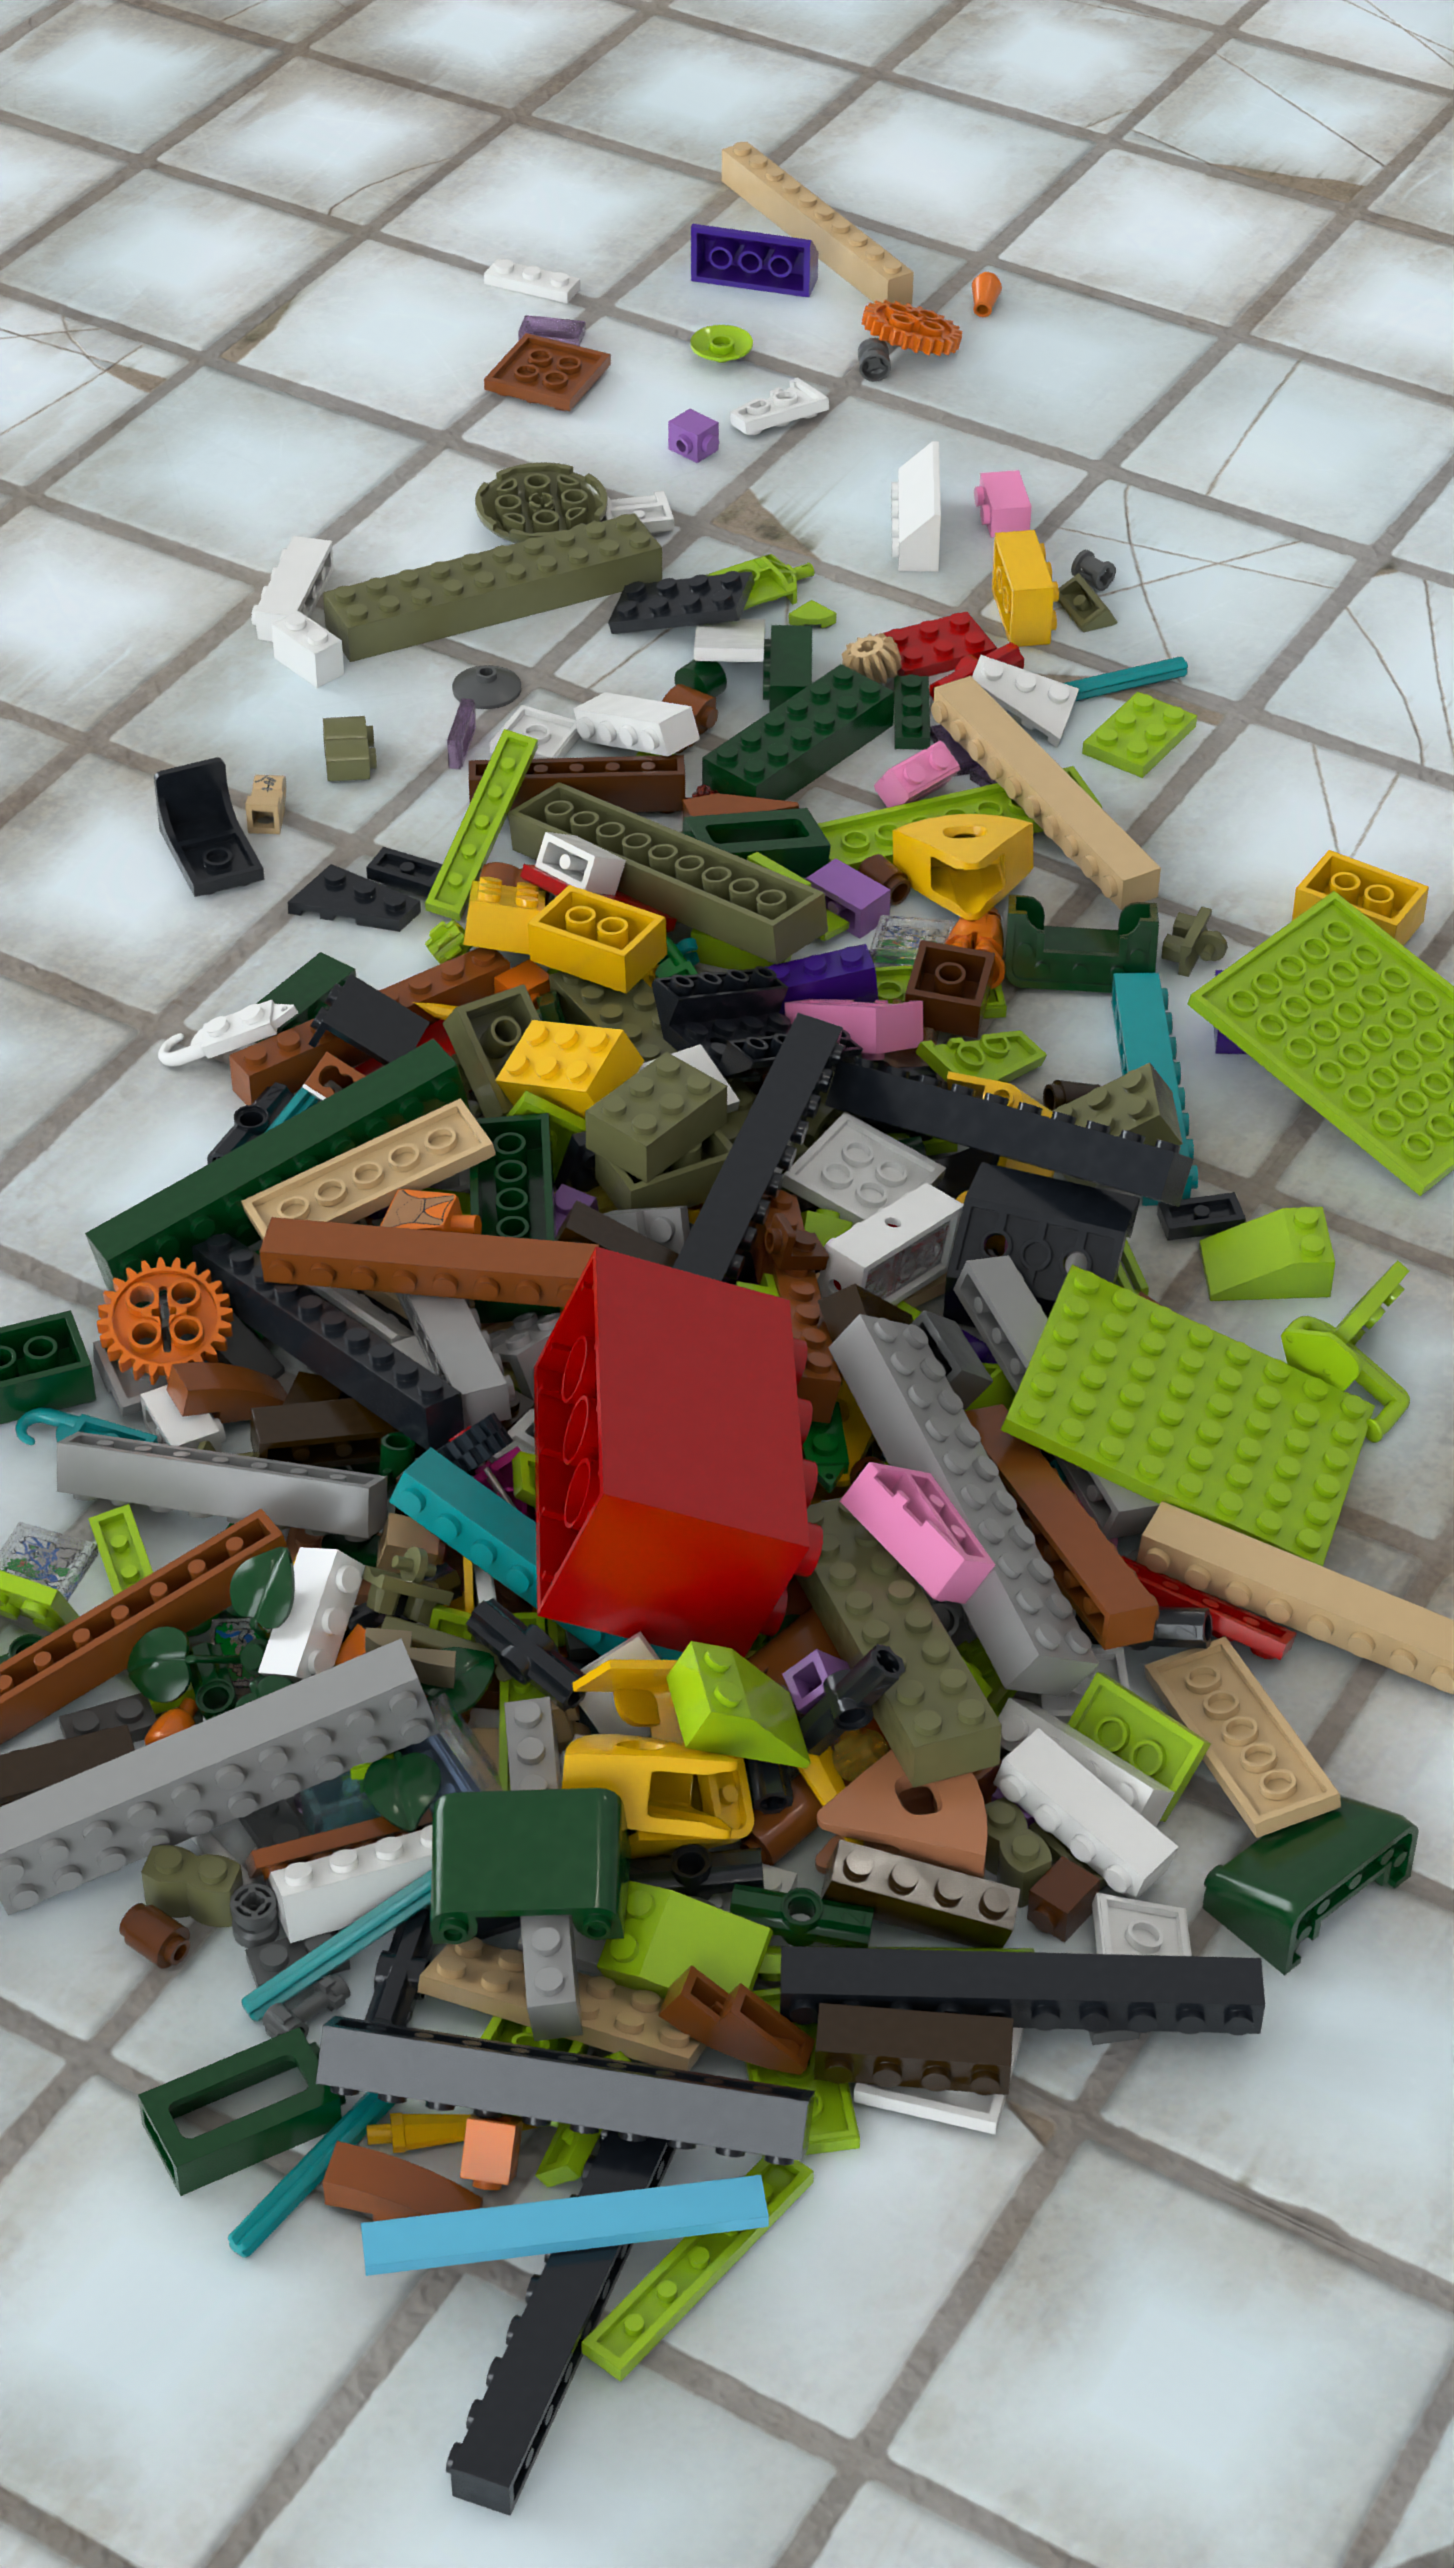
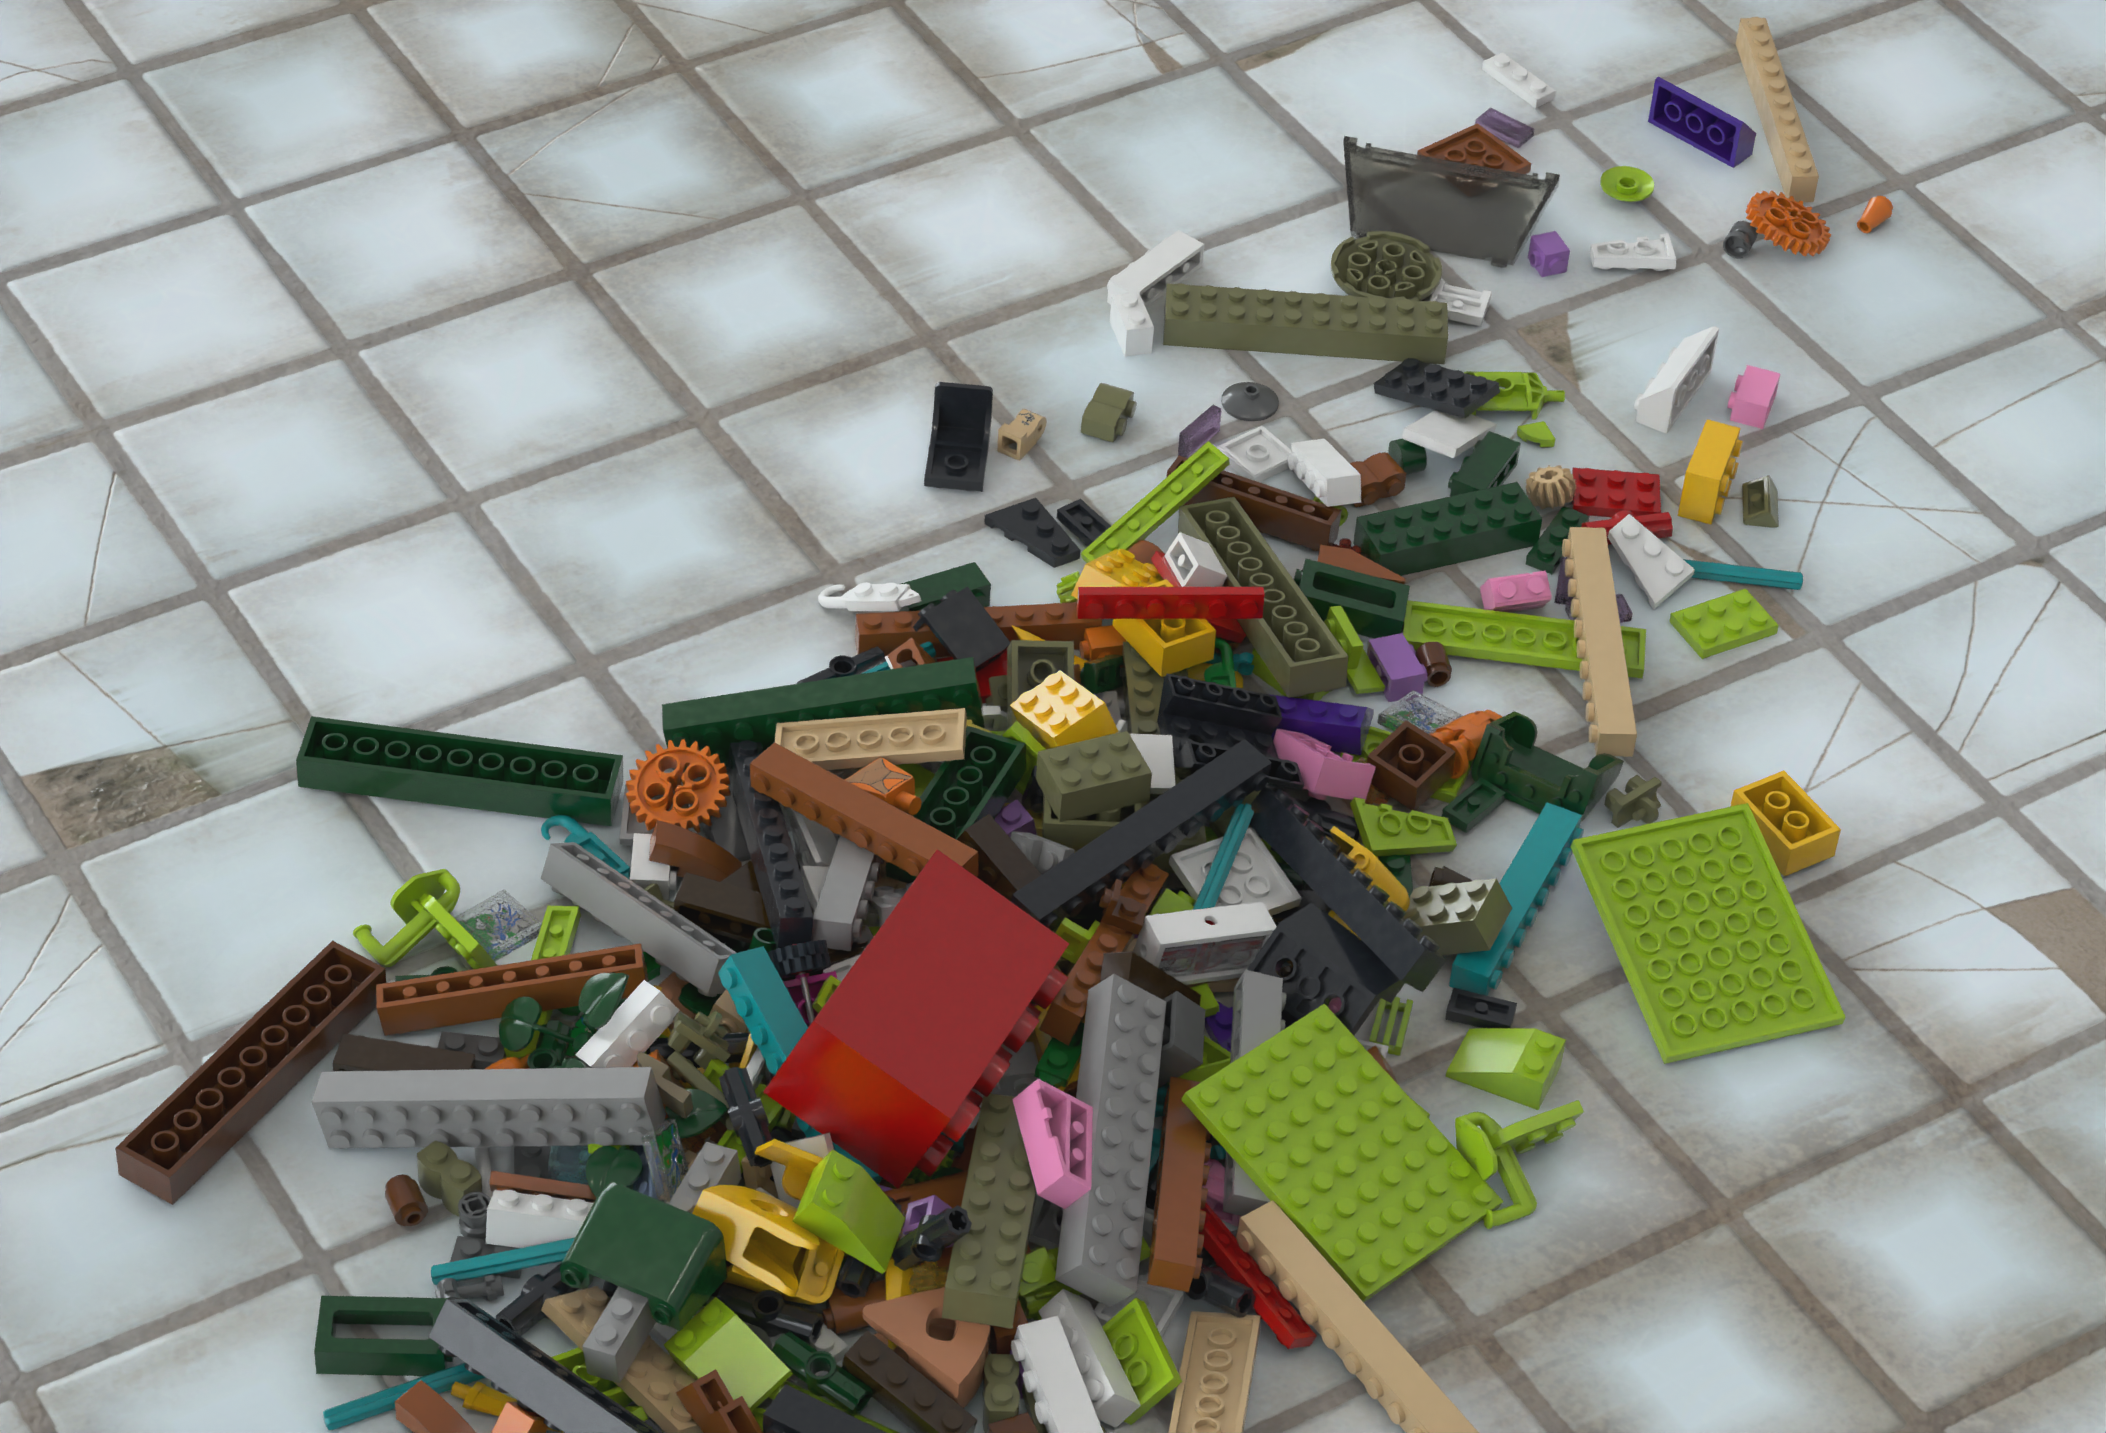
camera: 25 degrees right, 0 degrees up
(562, 416) = (1444, 202): none -> clear smoke windscreen
(600, 904) = (1170, 602): none -> red plate
(845, 1156) = (1224, 857): none -> teal axle
(965, 859) = (1501, 672): yellow piece -> none
(1032, 1007) = (1473, 805): none -> dark green plate
(1093, 569) = (1783, 472): dark grey bush -> none

